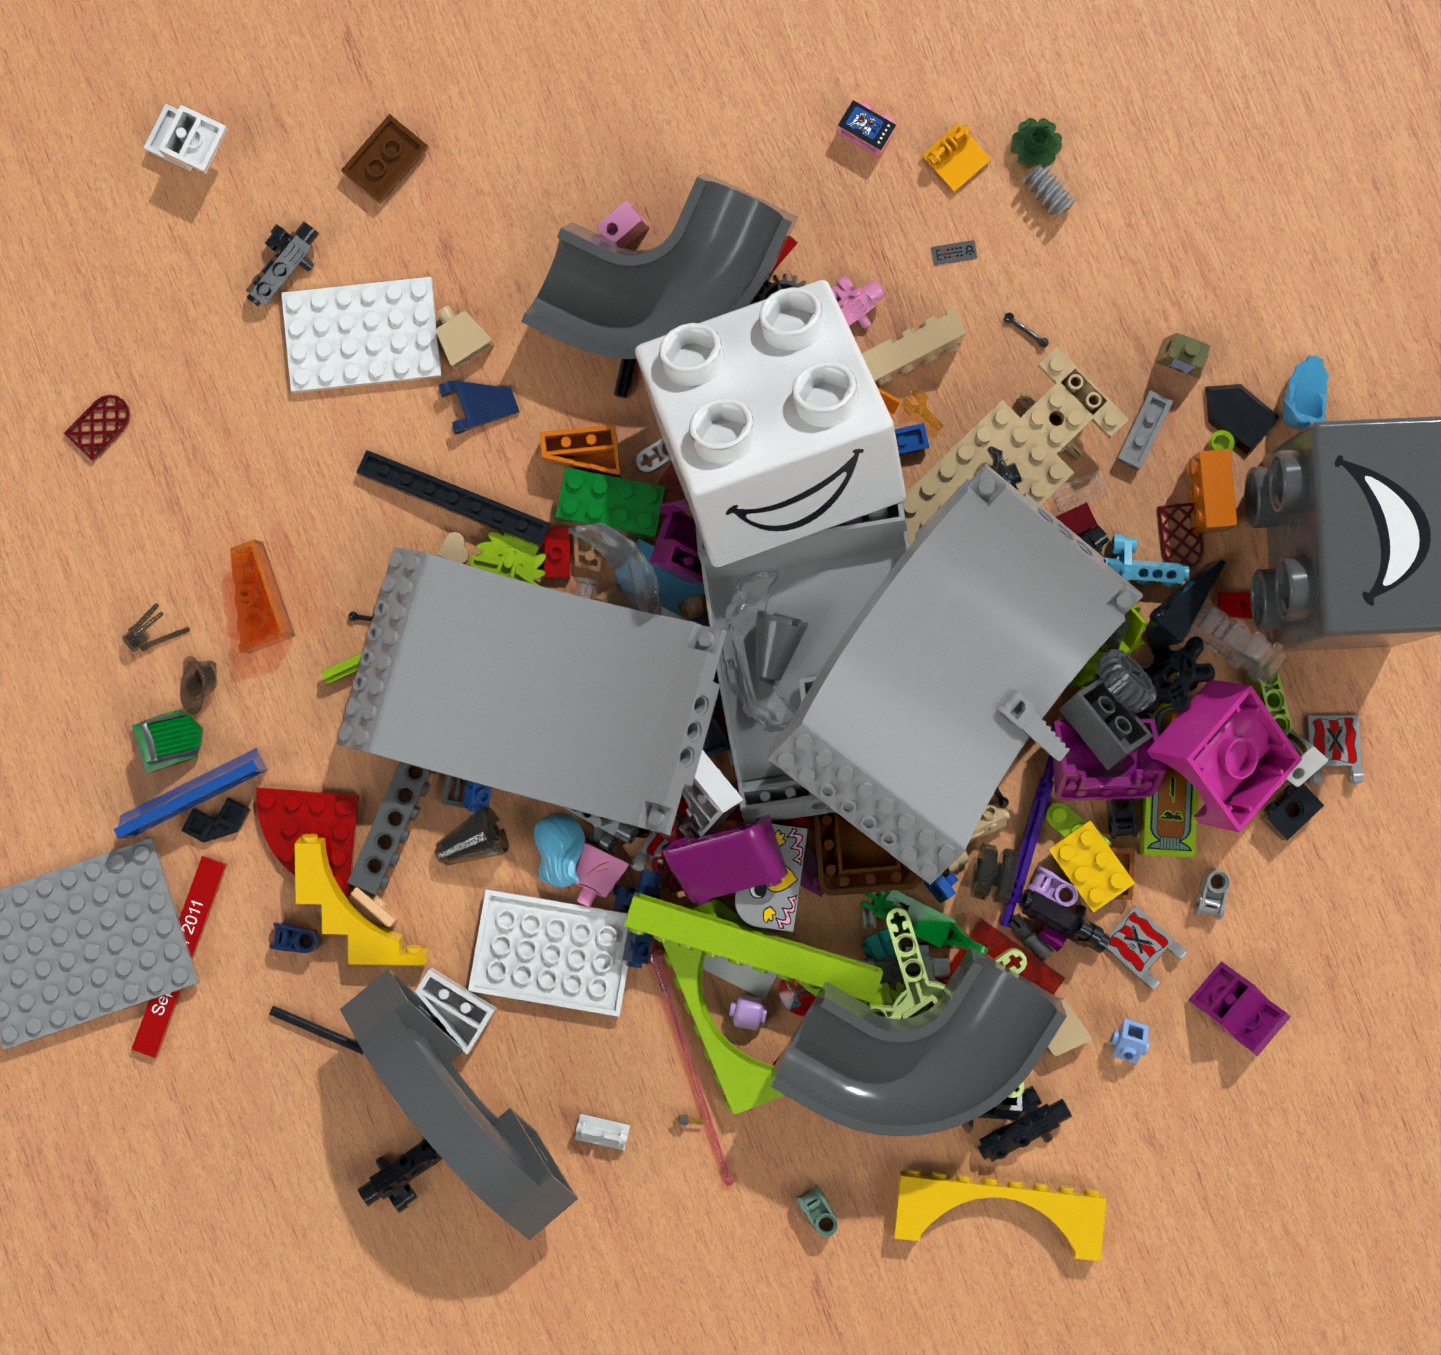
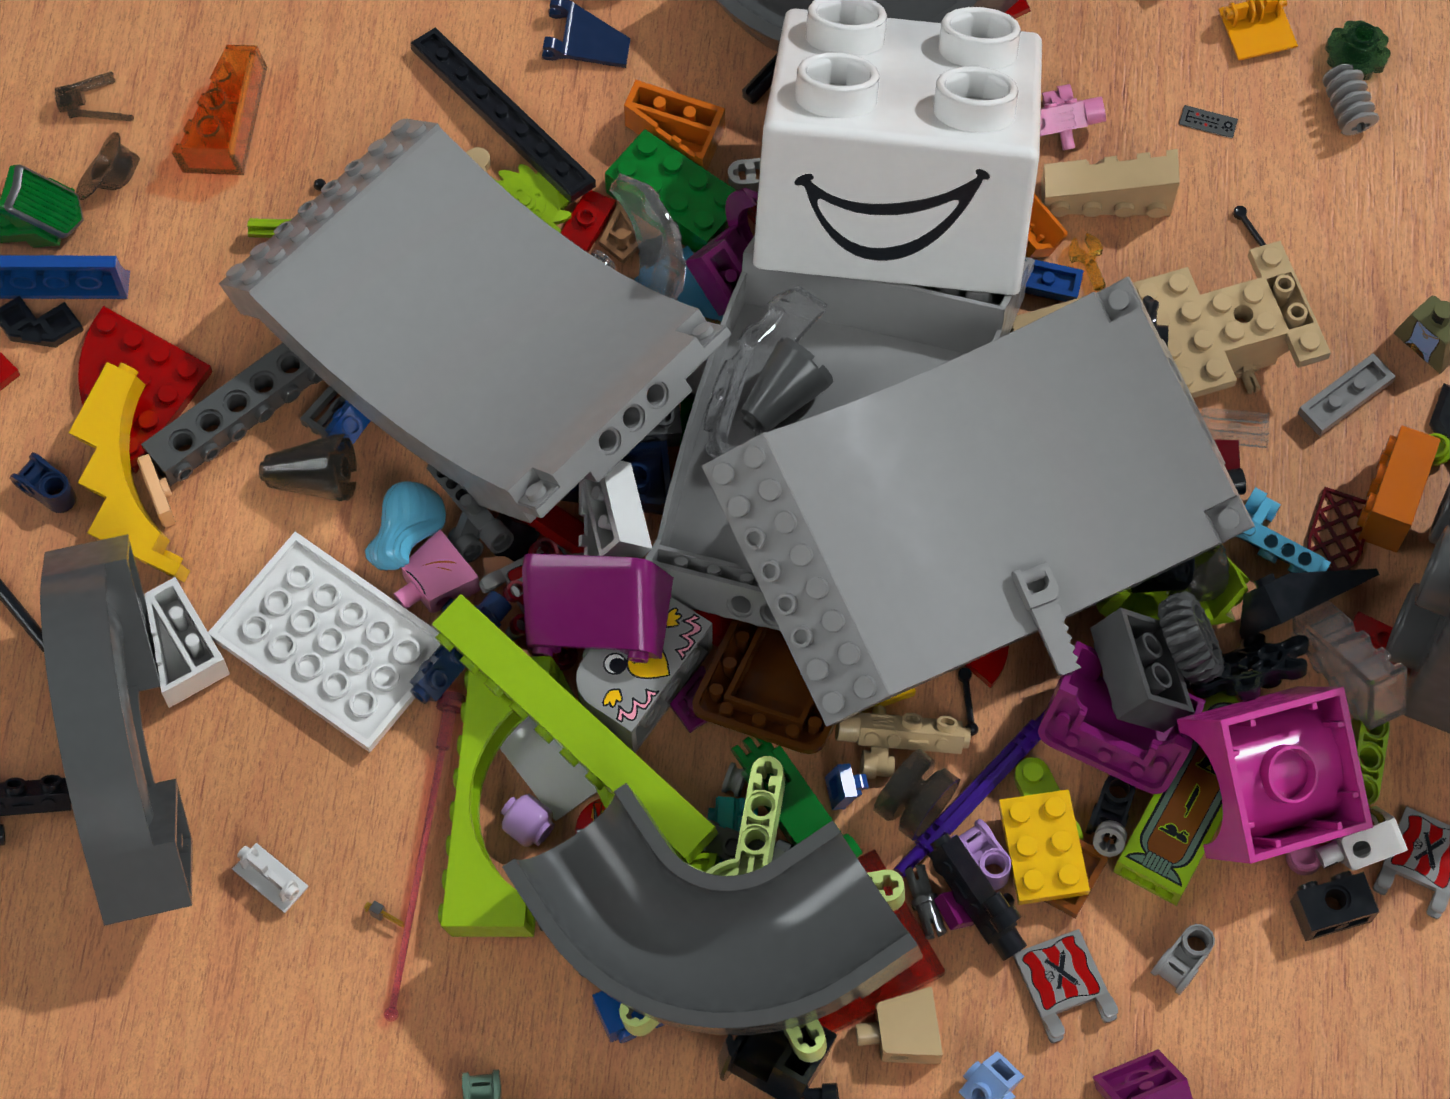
camera: 25 degrees right, 20 degrees down
(1131, 840) = (1105, 848): none -> light grey bush

